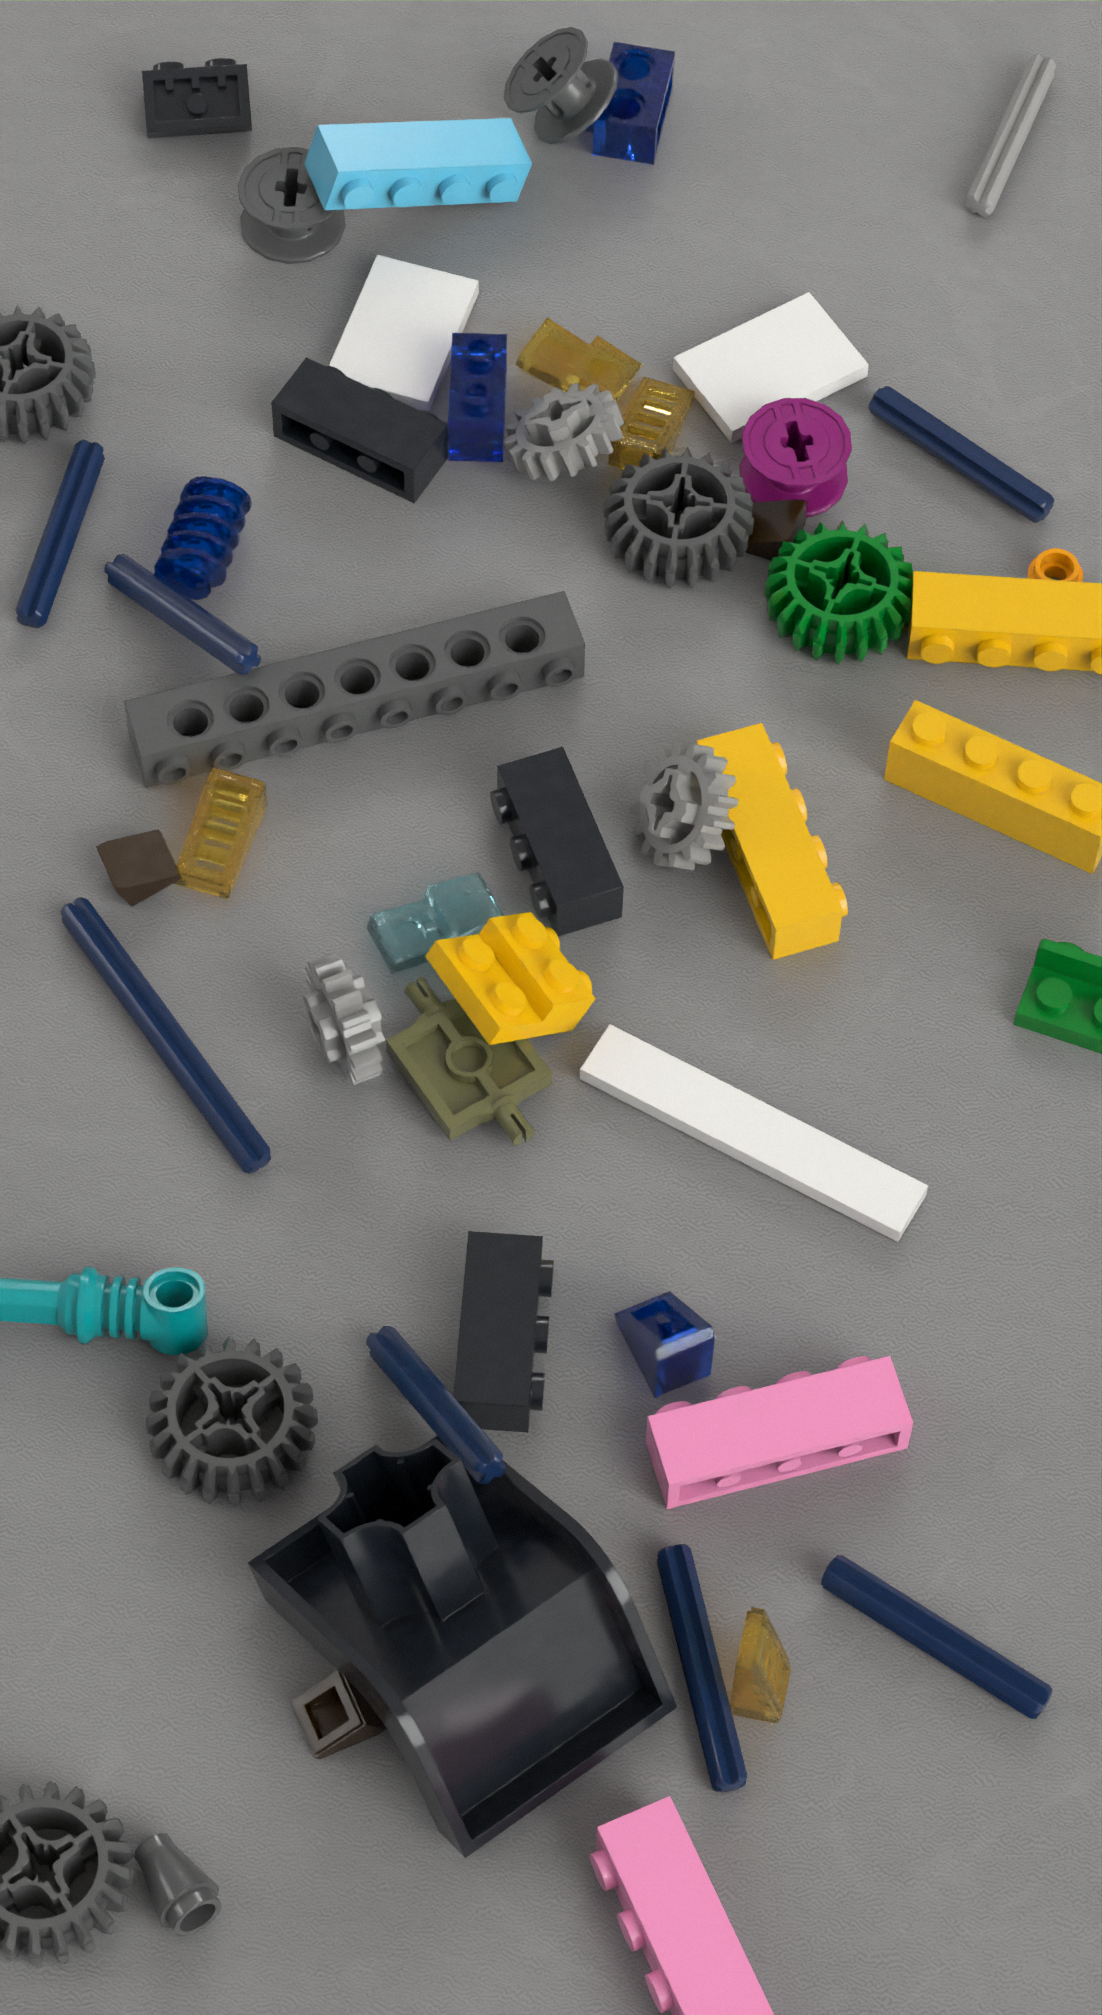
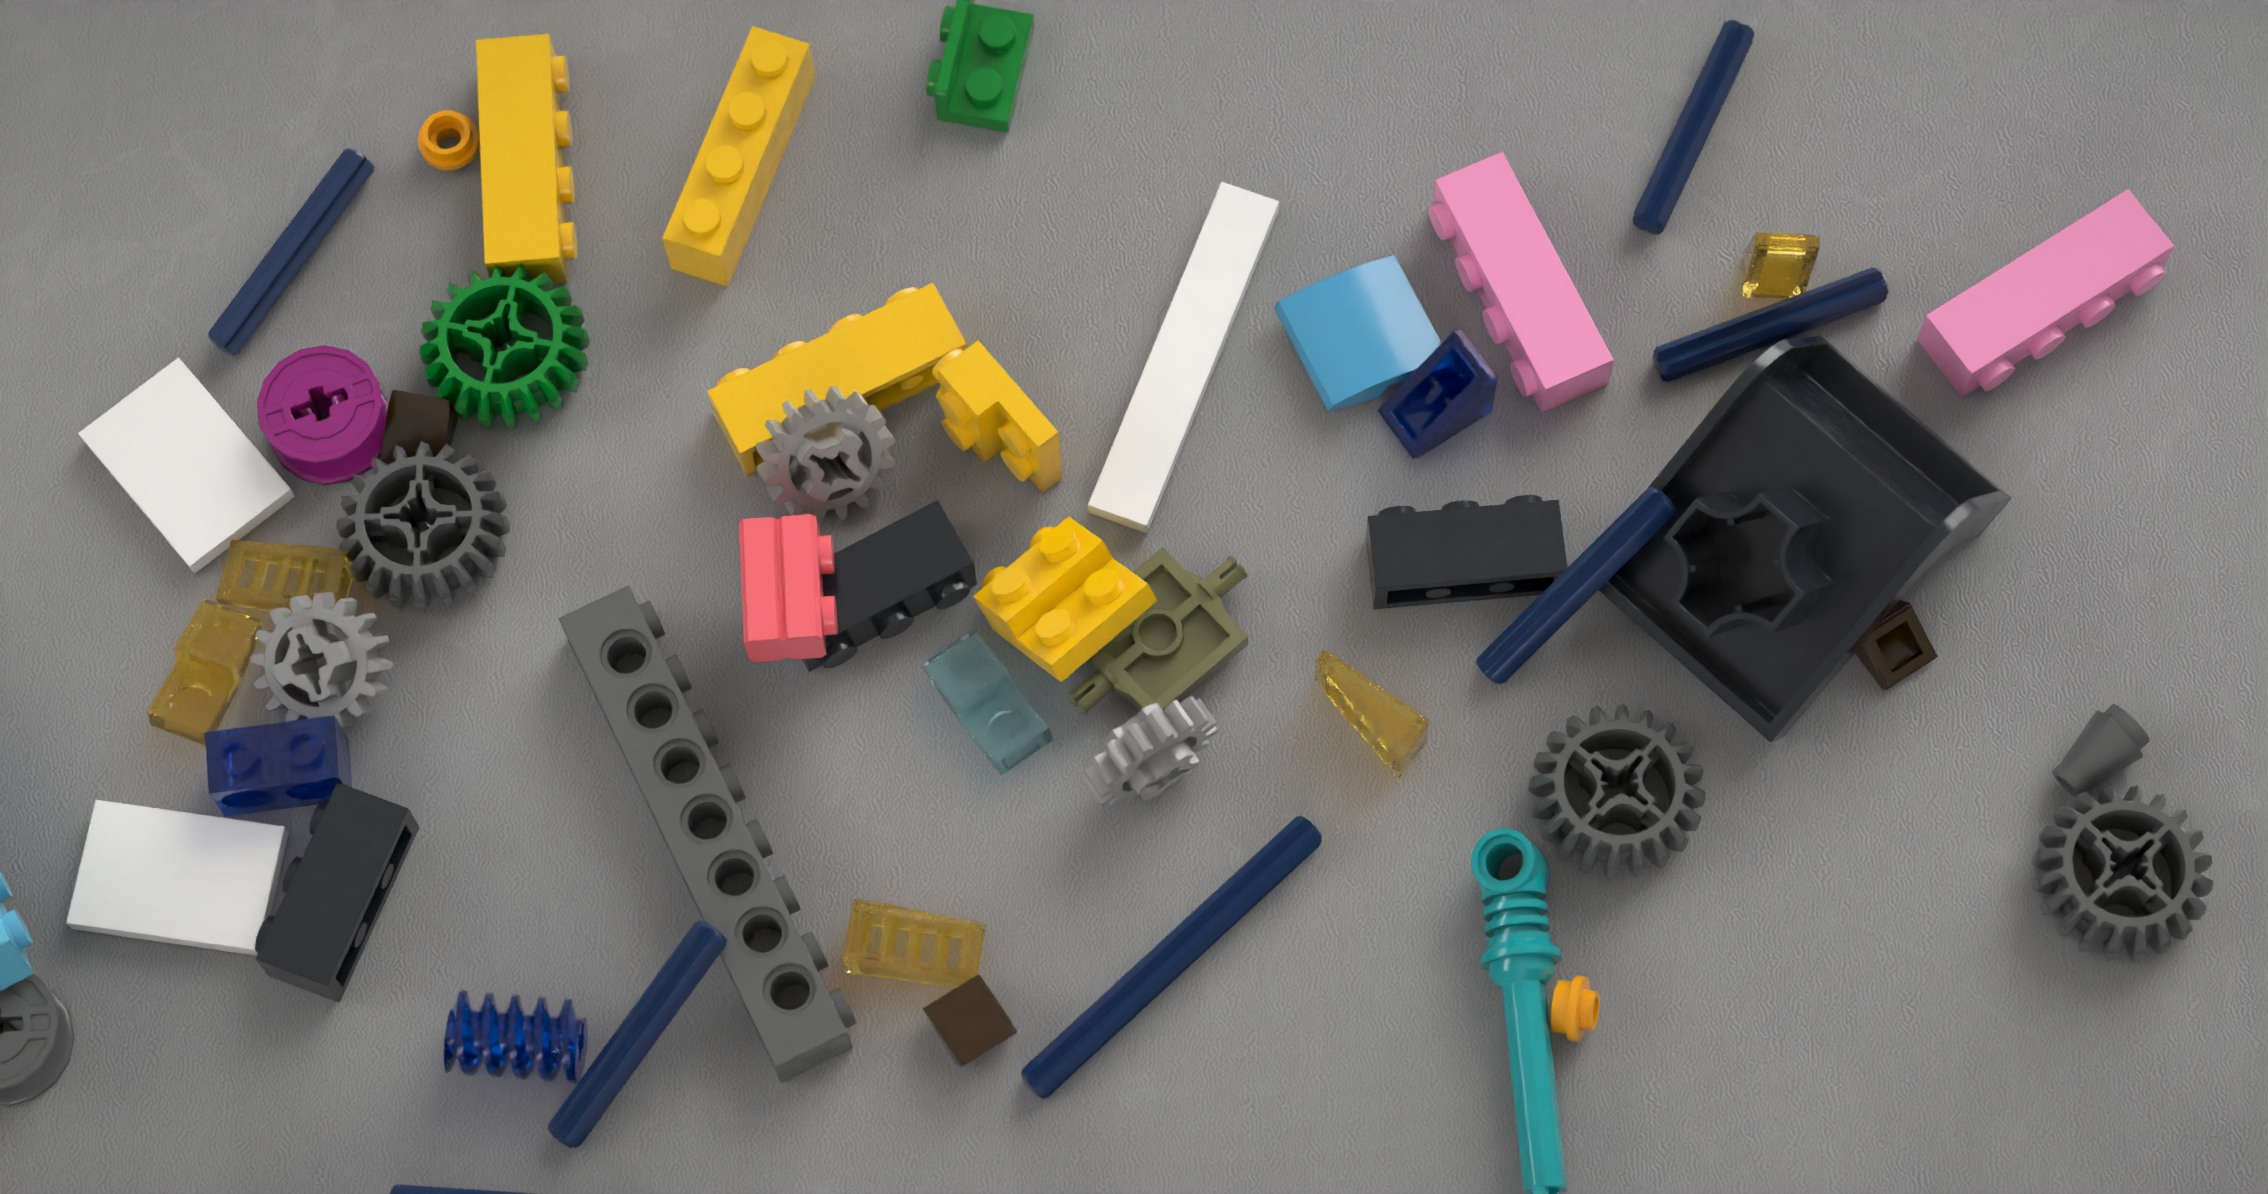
camera: 95 degrees left, 10 degrees up
(31, 1347) = (1574, 1008): none -> light orange plate
(347, 1228) = (1382, 720): none -> clear yellow slope
(549, 743) = (784, 588): none -> coral brick
(701, 949) = (993, 413): none -> yellow plate
(750, 1282) = (1358, 332): none -> dark azure slope

